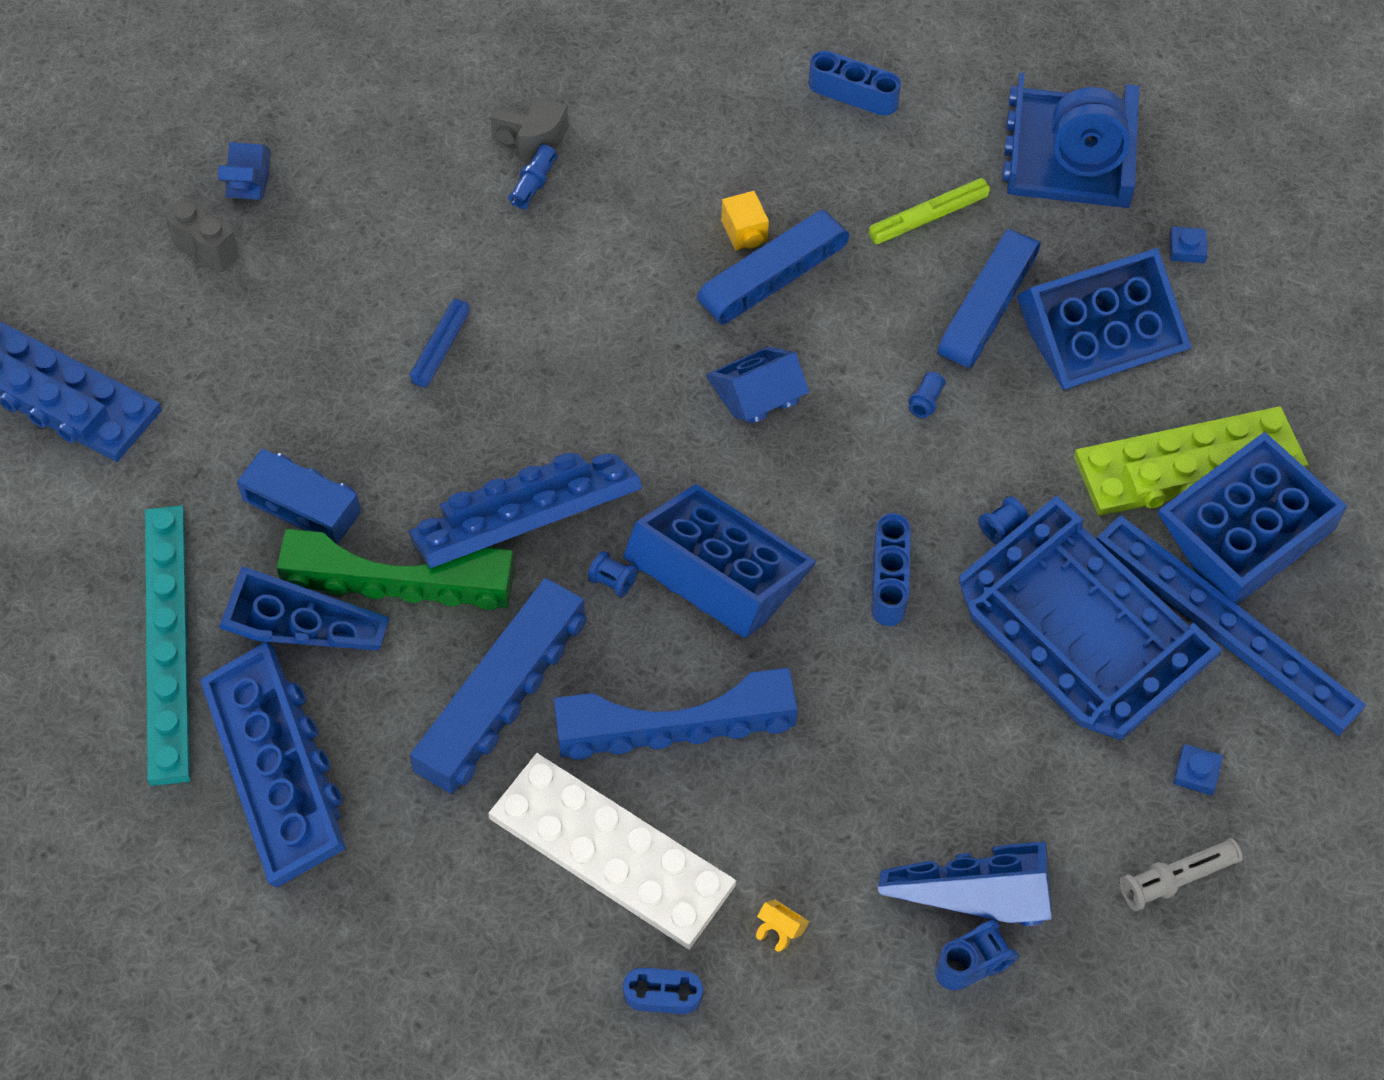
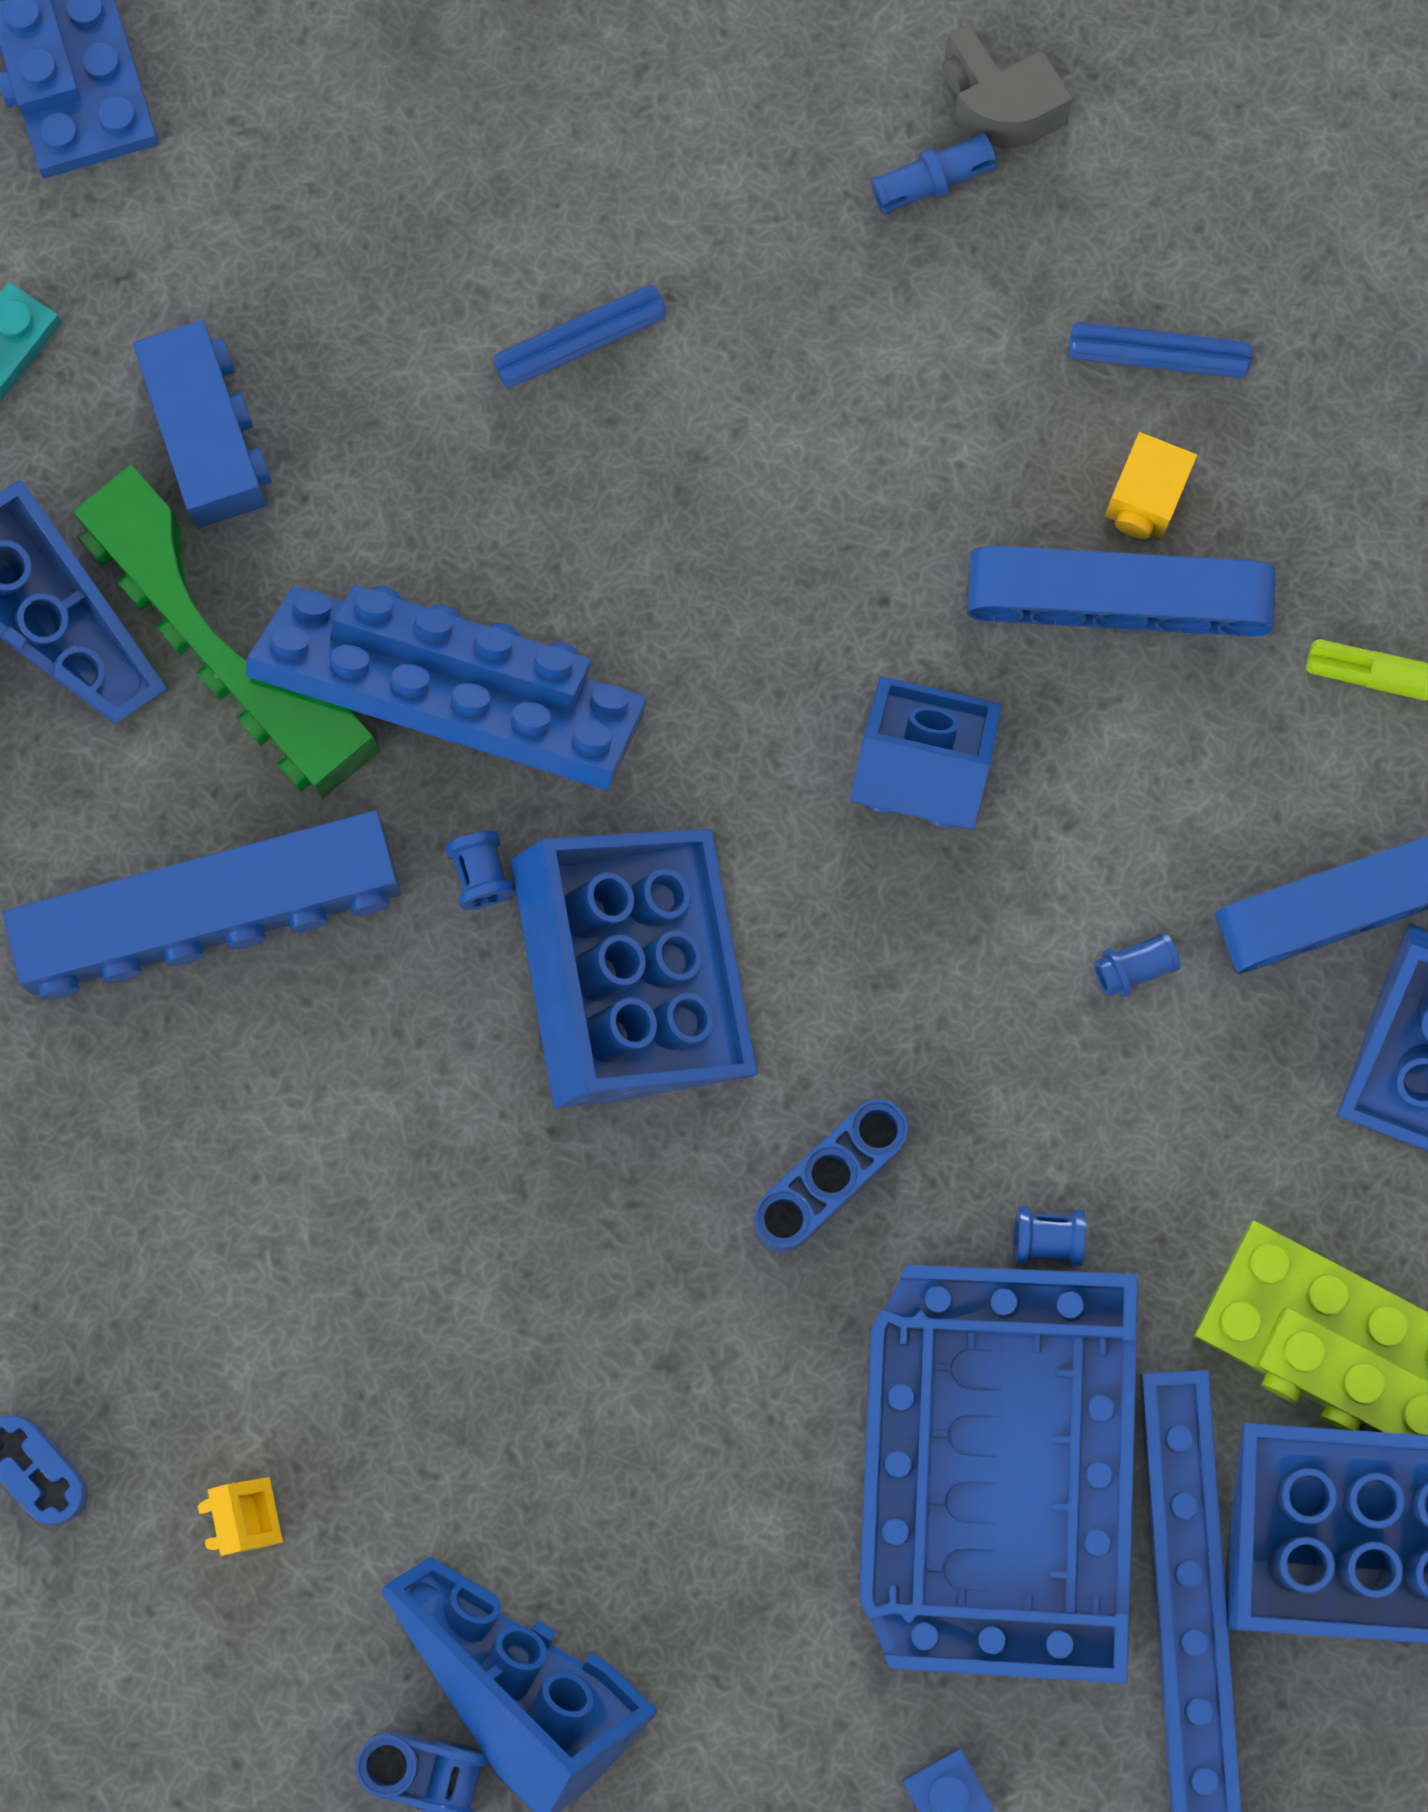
camera: 45 degrees right, 20 degrees up
(595, 725) = (481, 1206): blue arch -> none
(613, 850) = (142, 1239): white plate -> none
(694, 174) = (1160, 350): none -> blue axle

